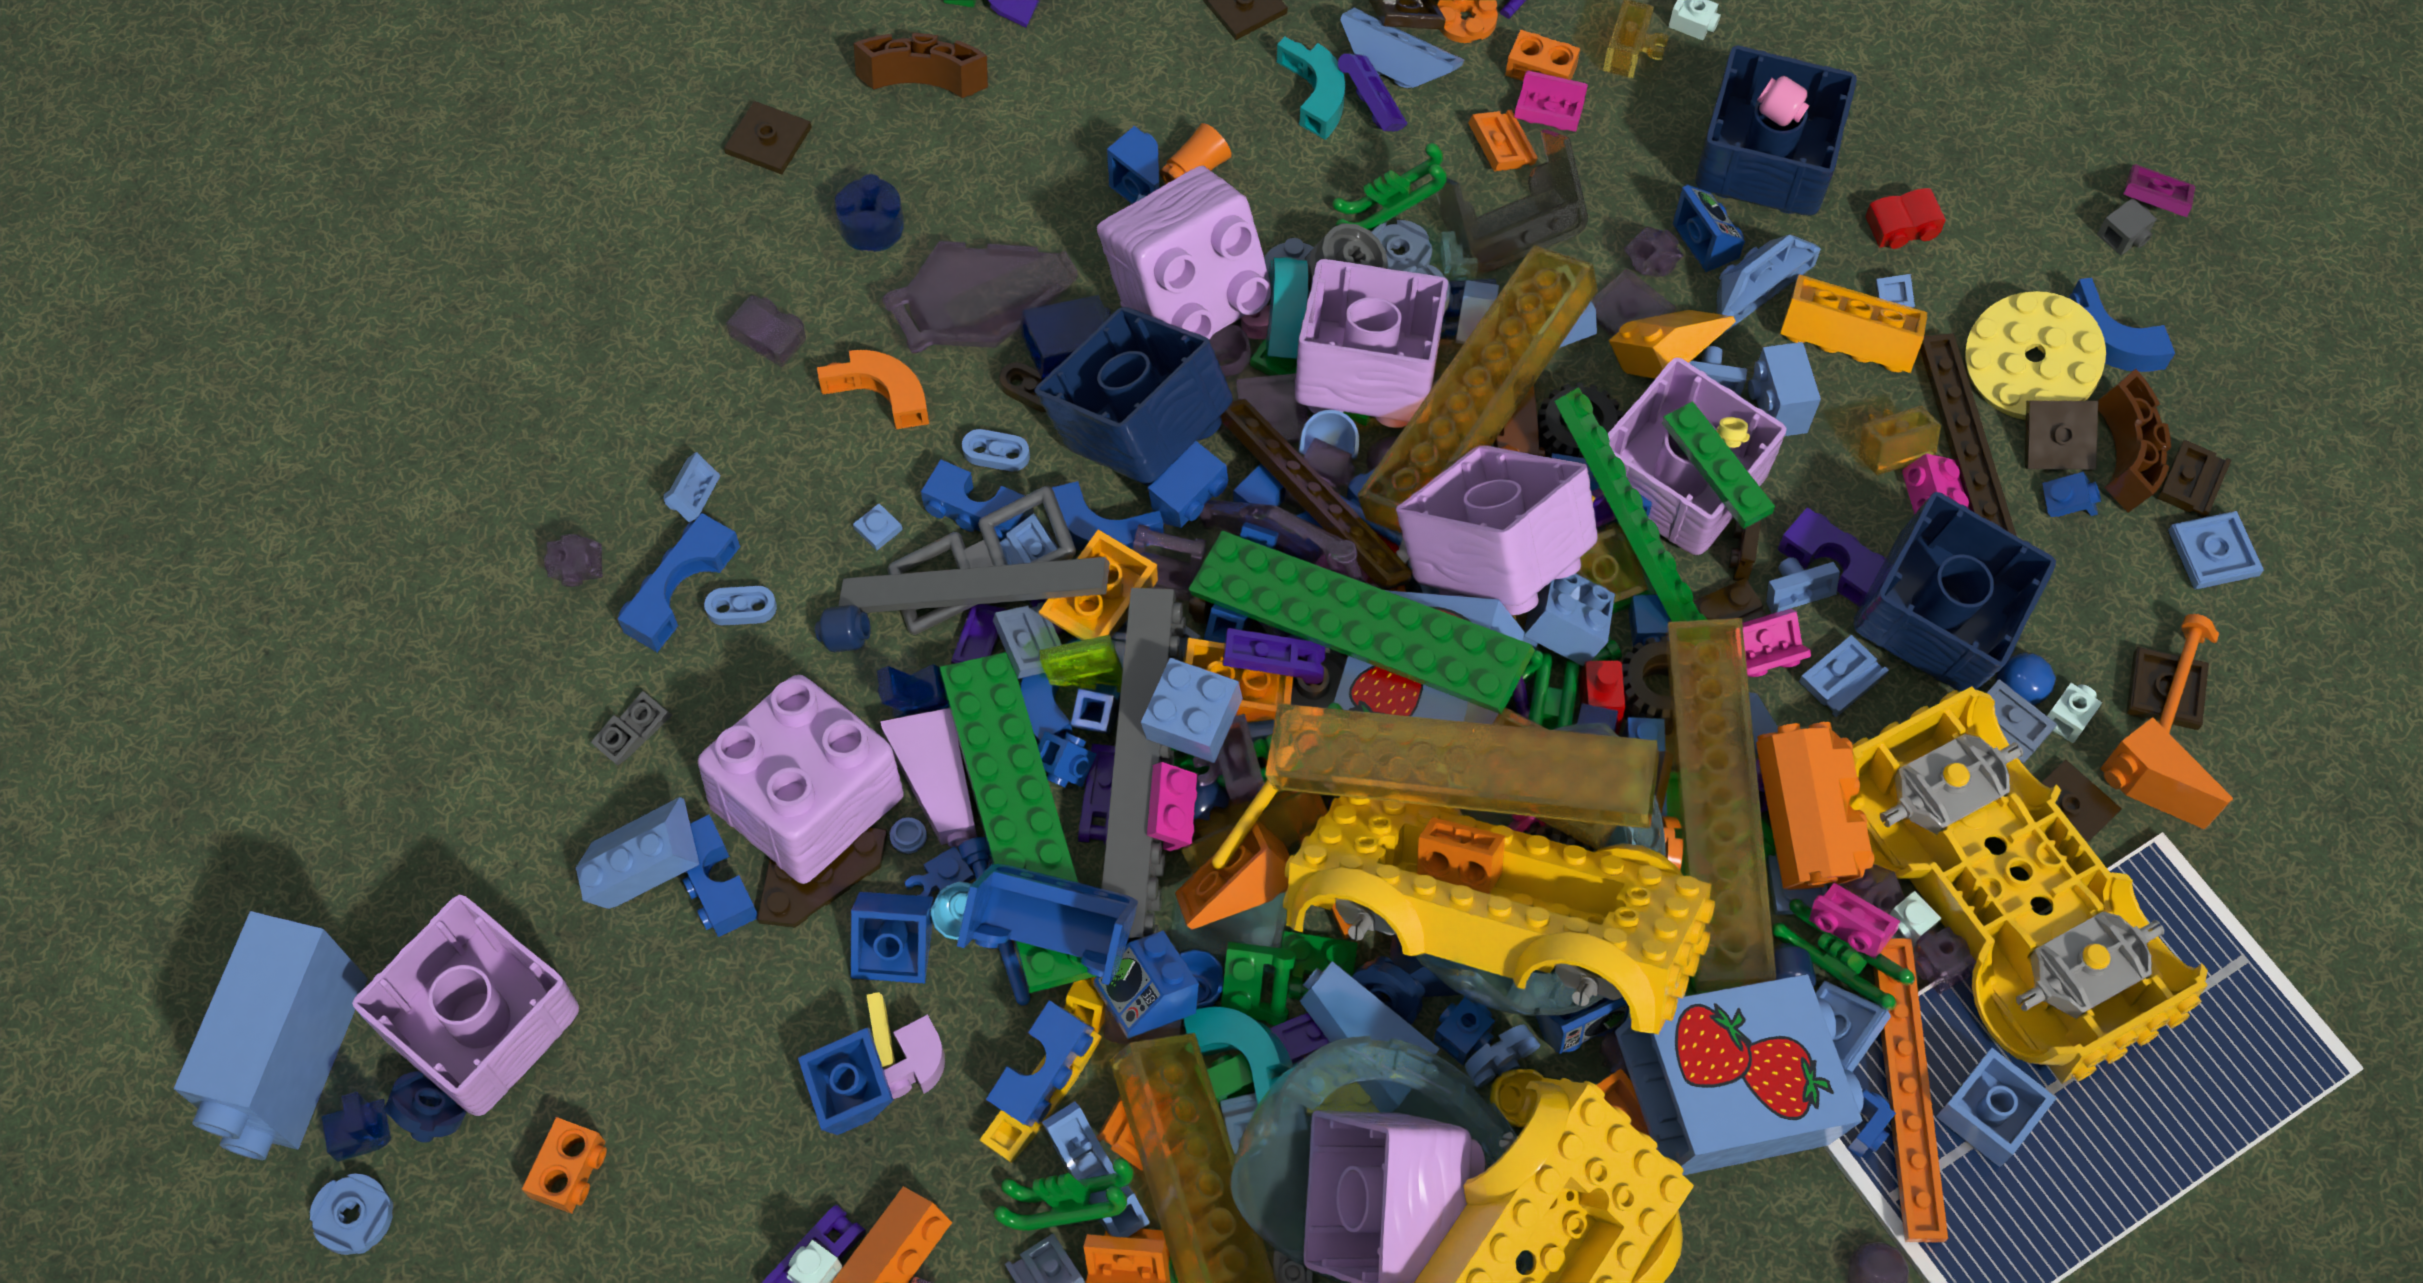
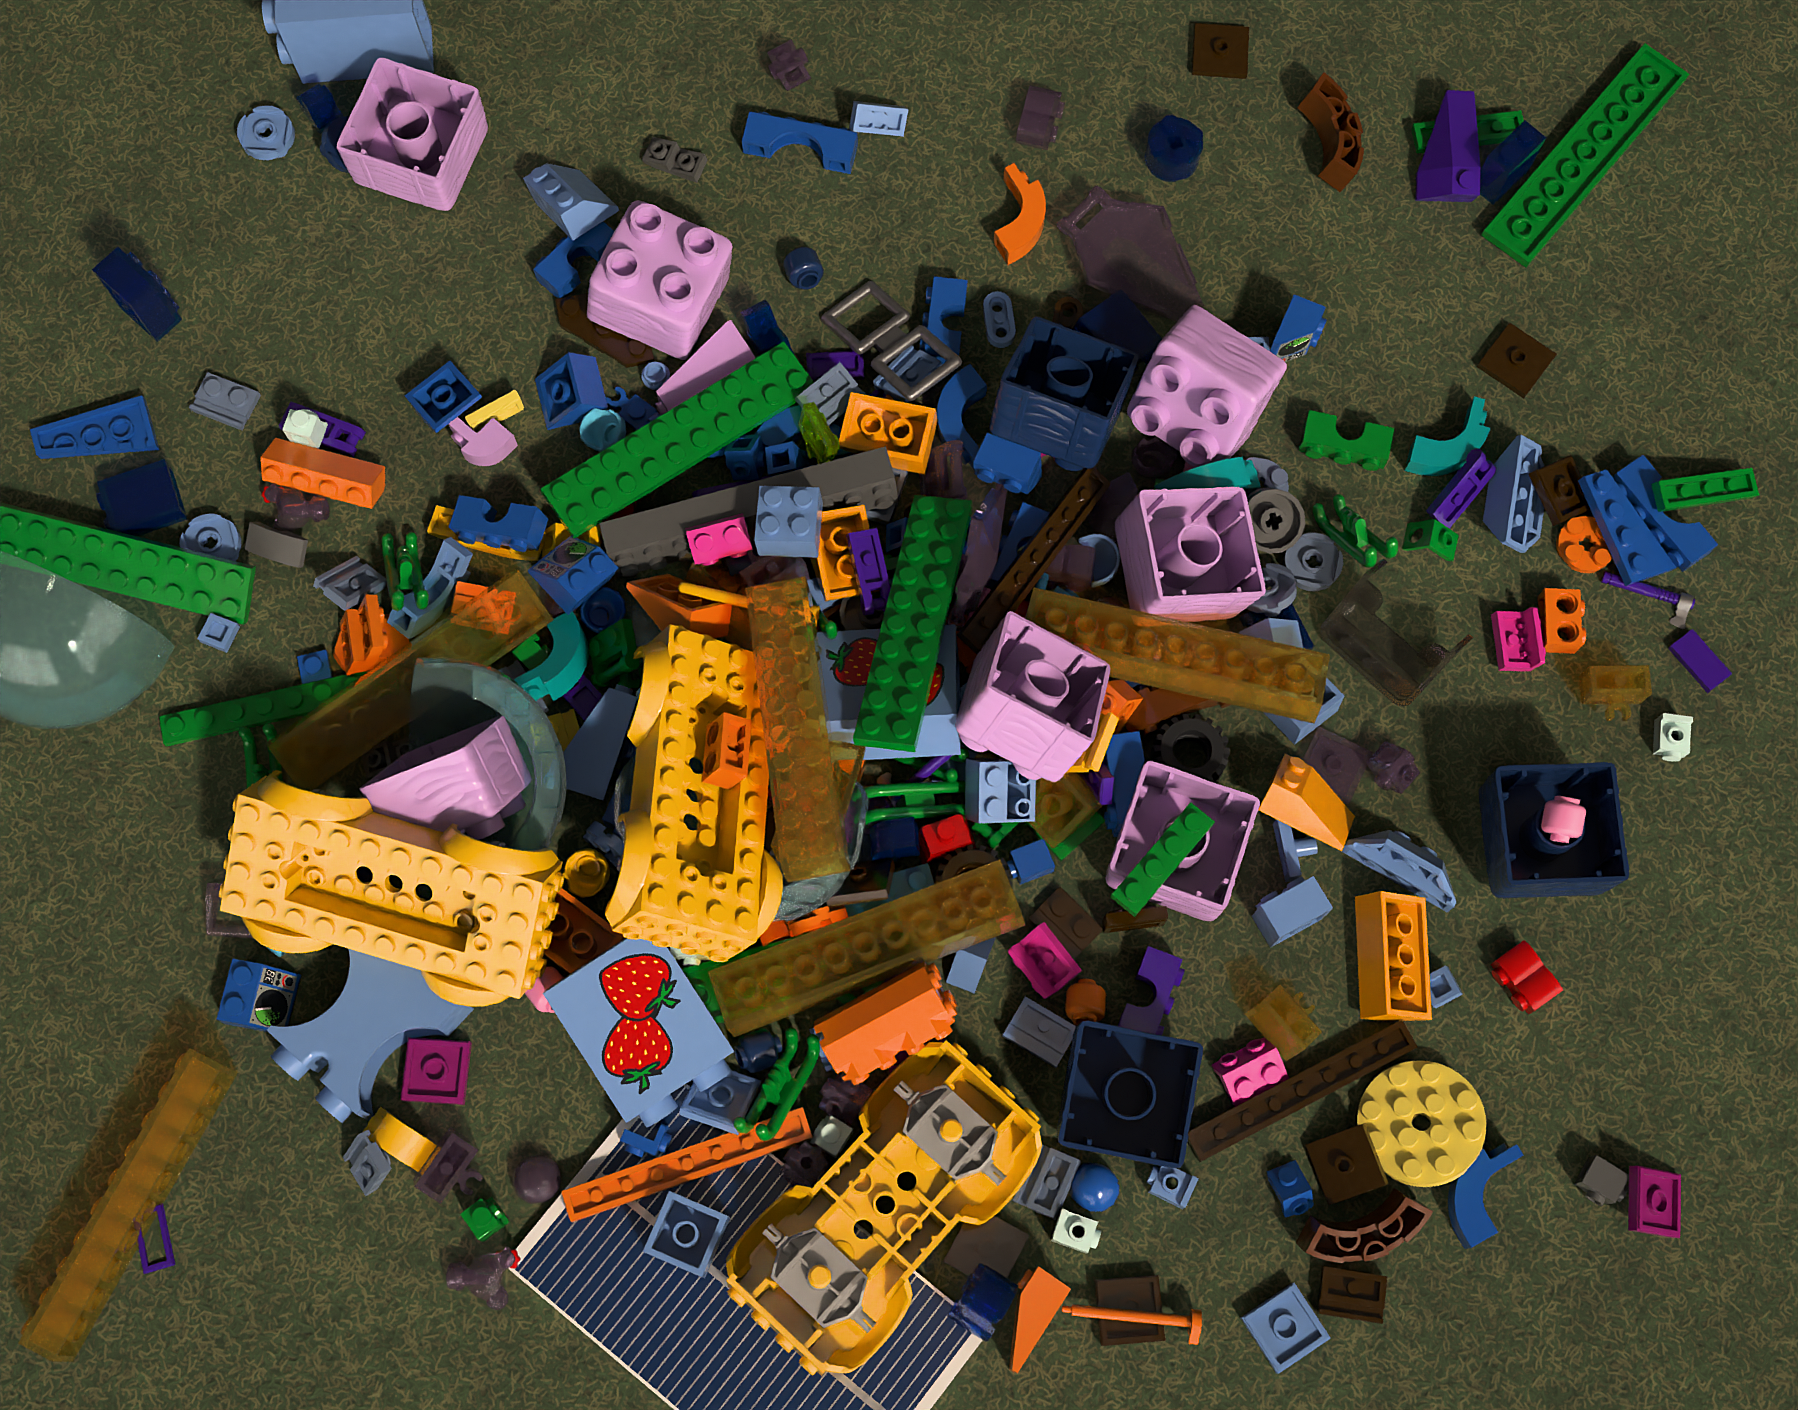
camera: 70 degrees right, 10 degrees up
(555, 1163) = (337, 241): orange brick -> none
(741, 605) = (798, 193): medium blue plate -> none
(877, 527) = (901, 261): medium blue plate -> none
(977, 585) = (862, 343): dark grey tile -> none
(1049, 915) = (597, 477): blue windscreen -> none
(1203, 148) = (1332, 372): orange plant -> none
(1293, 156) = (1322, 439): none -> green arch
(1417, 133) = (1435, 537): none -> green bracket
(1452, 261) = (1321, 603): clear light blue bracket -> none
(1502, 140) = (1462, 611): orange plate -> none
(1627, 507) = (1096, 808): green plate -> none
(1707, 228) = (1439, 807): blue slope -> none
(1733, 431) = (1200, 863): light yellow plate -> none
(1801, 585) = (1112, 975): medium blue tile -> none
(1824, 619) = (1085, 1001): none -> orange head
(1853, 920) = (806, 1084): dark pink bracket -> none
(2050, 604) = (1181, 1194): none -> medium blue brick
(2139, 817) = (983, 1301): none -> clear blue brick

